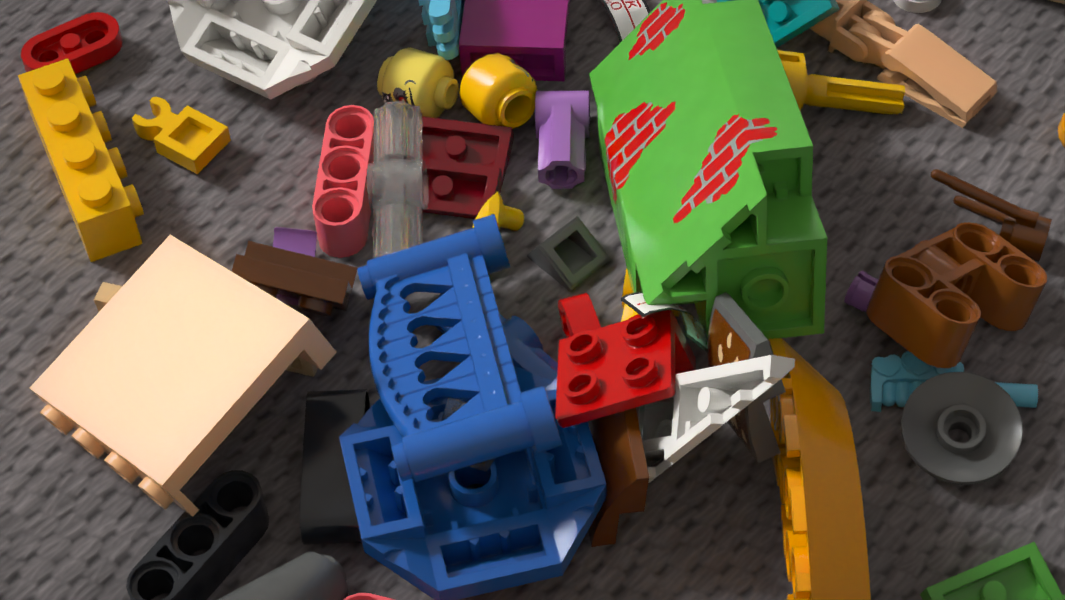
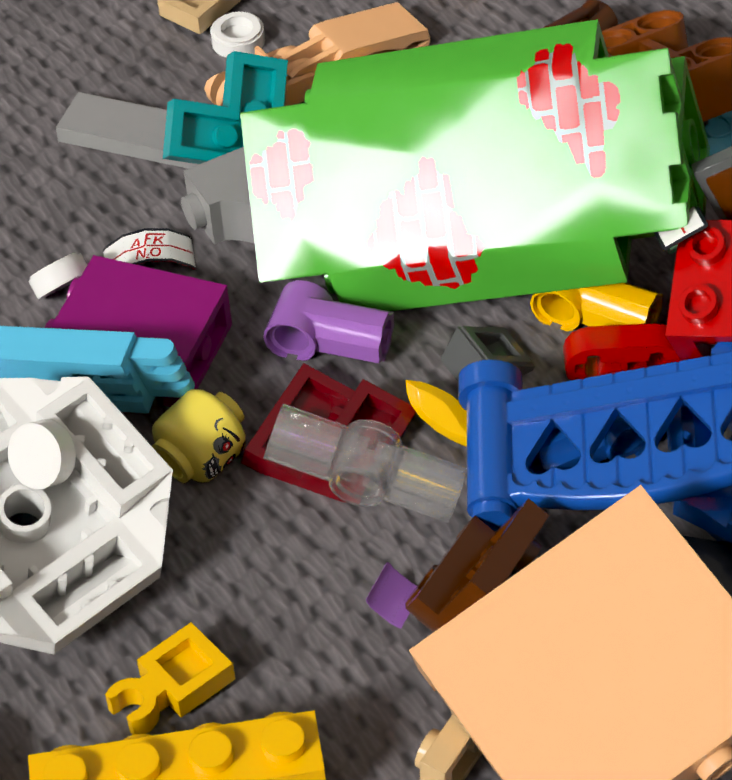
camera: 75 degrees left, 5 degrees down
(341, 191) = (322, 519): coral beam -> none
(498, 91) = (251, 361): yellow head -> none

